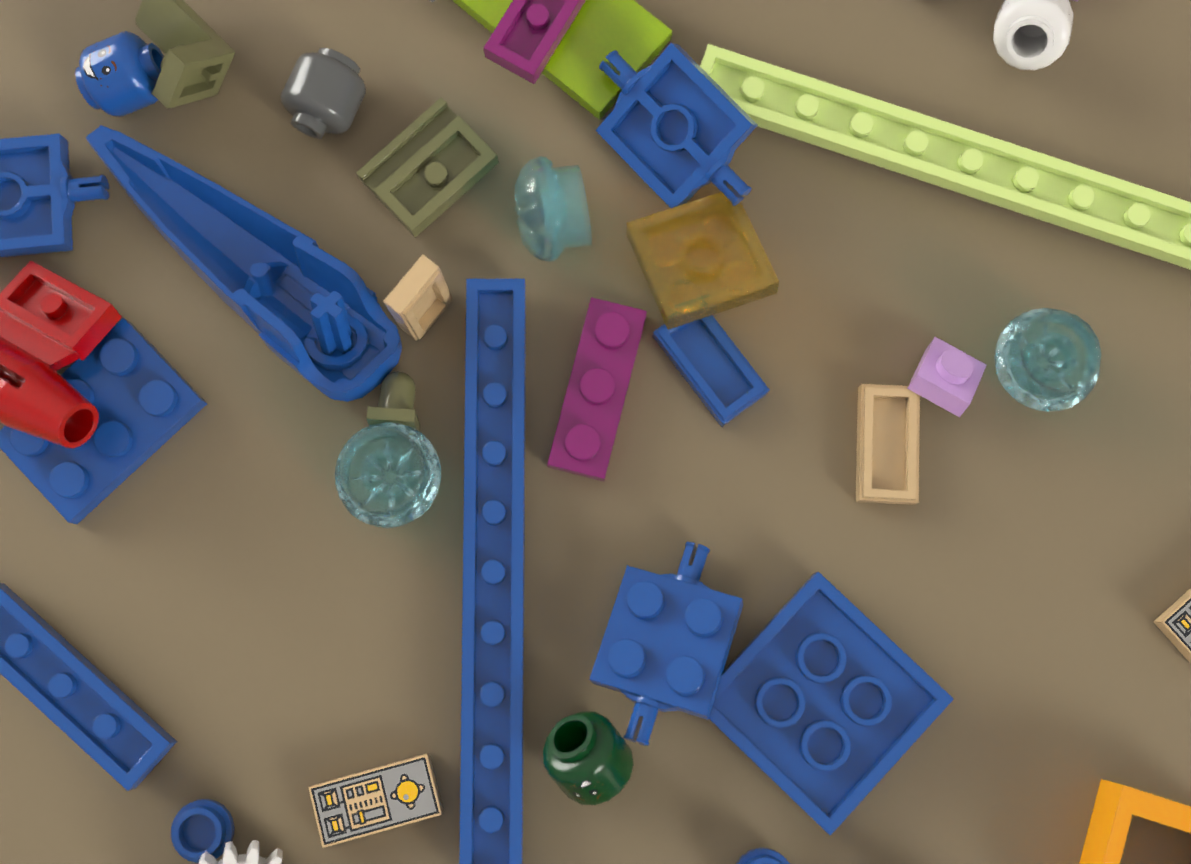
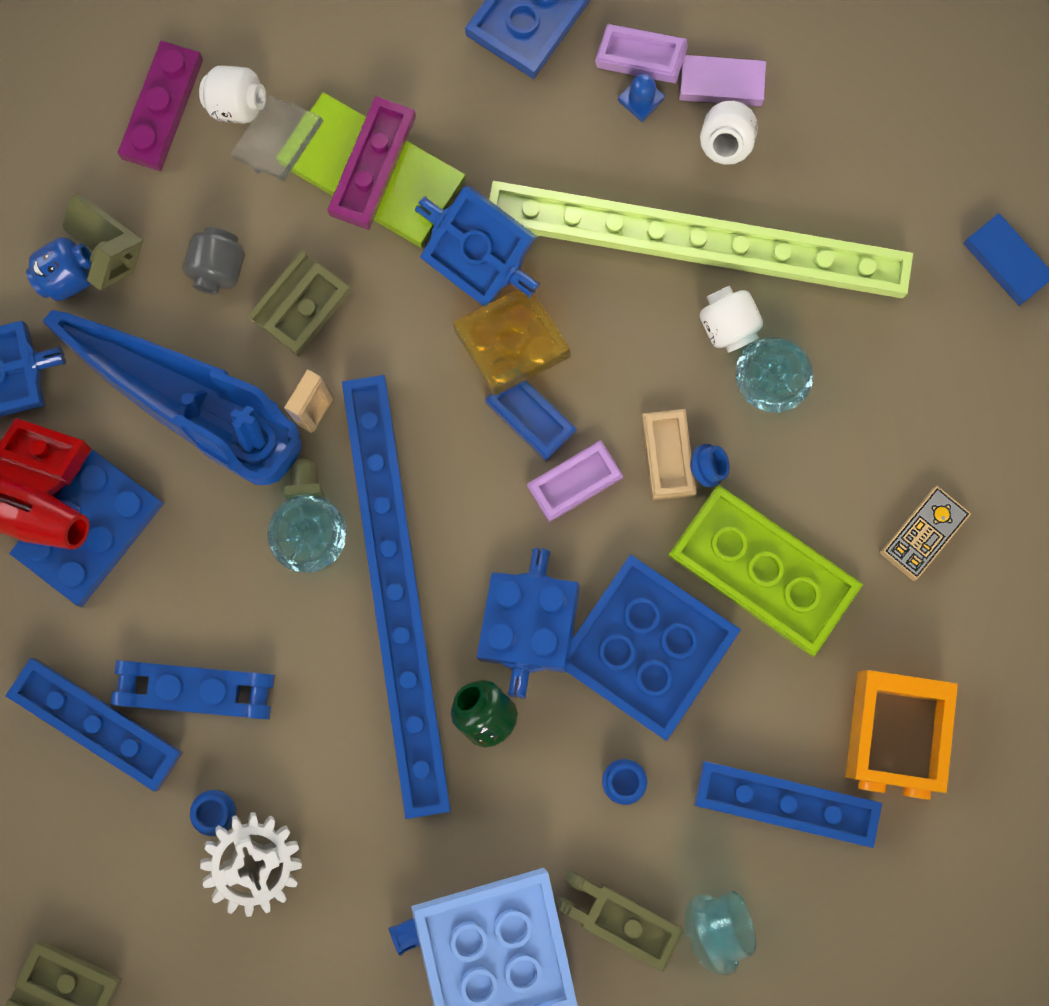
camera: 10 degrees left, 0 degrees up
(203, 659) = (192, 689): none -> blue plate
(376, 800) = (335, 770): tile -> none
(551, 208) = (395, 321): clear light blue piece -> none
(597, 389) = (450, 447): magenta plate -> none
(756, 460) = (574, 481): none -> lavender tile
(942, 467) = (709, 465): none -> blue plate
(947, 377) = (703, 398): lavender plate -> none
(997, 622) = (765, 570): none -> lime tile
(1000, 276) = (731, 319): none -> white head

